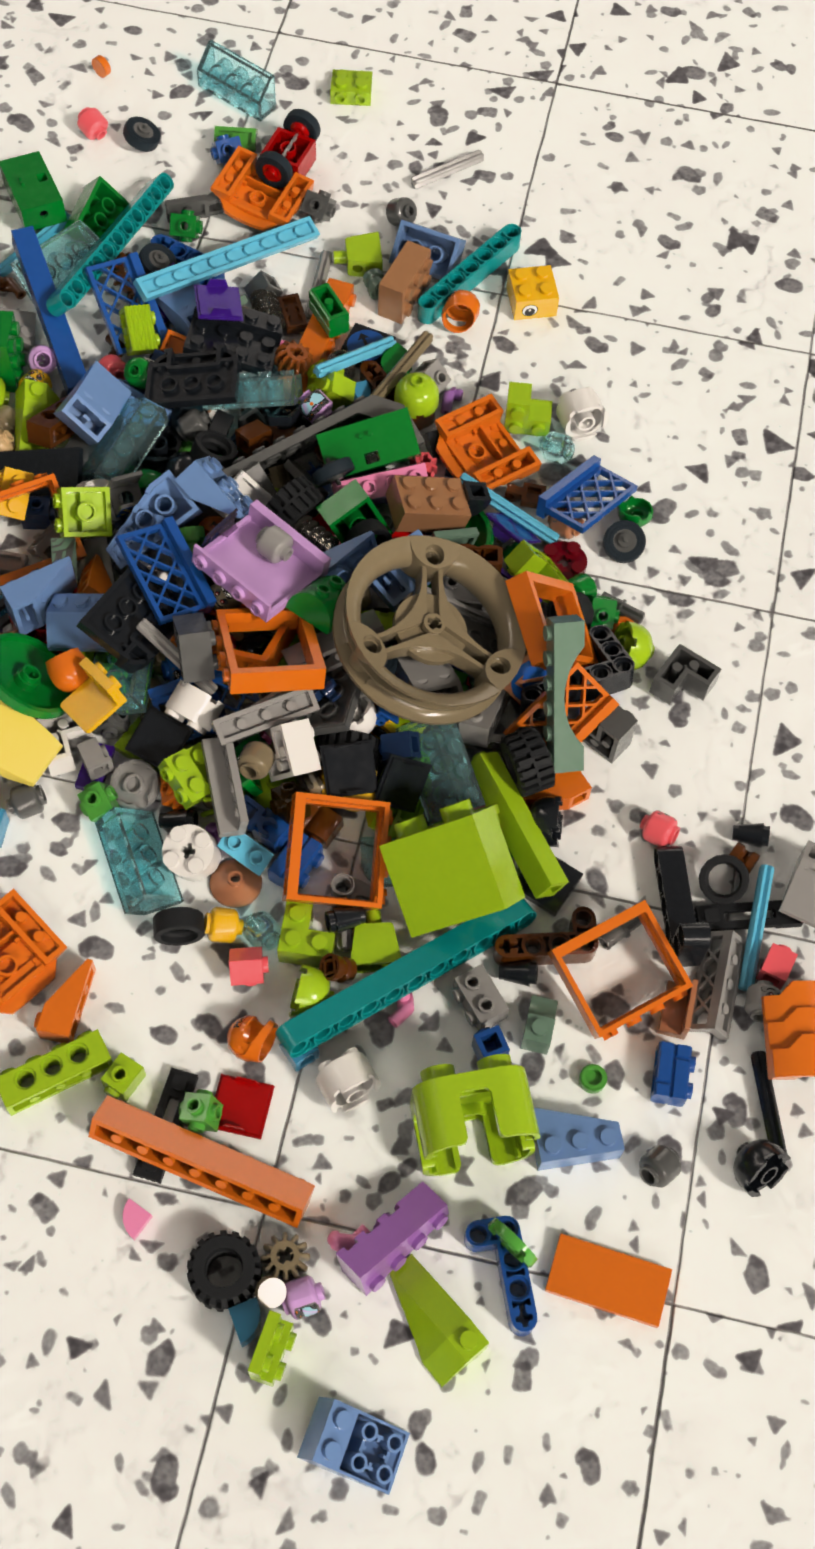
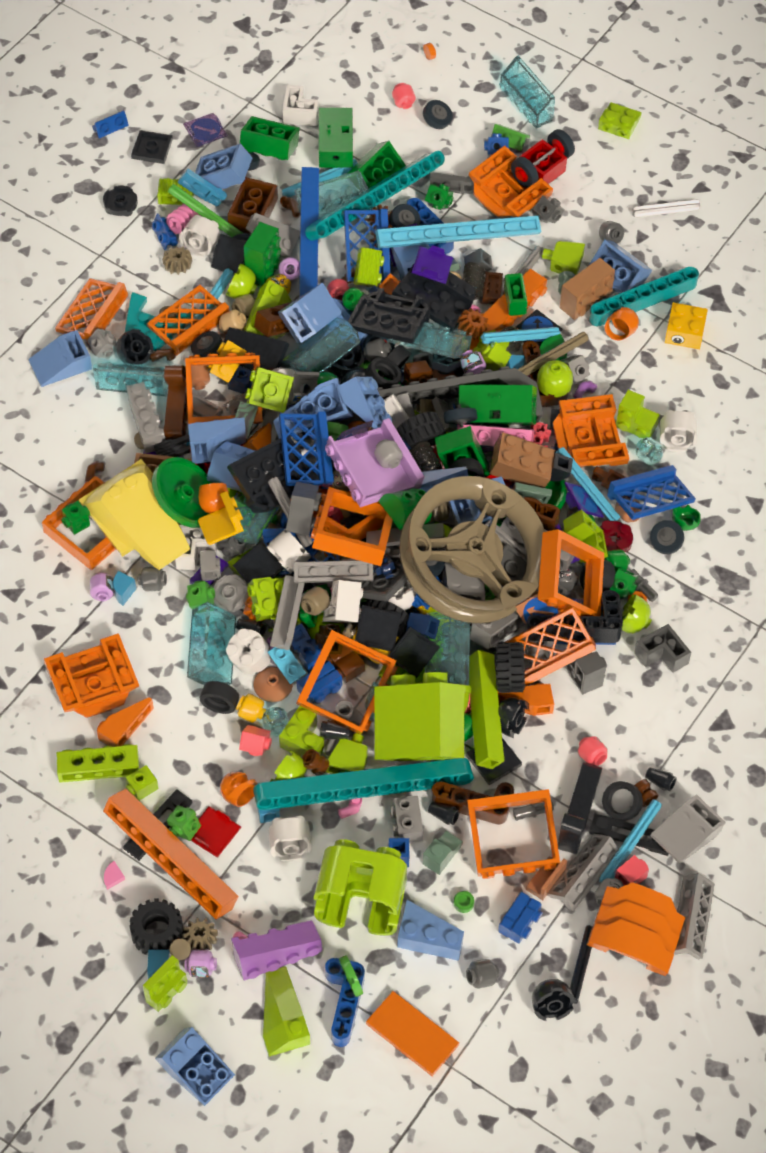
camera: 25 degrees right, 5 degrees down
(564, 642) = (562, 588): sand green arch -> none

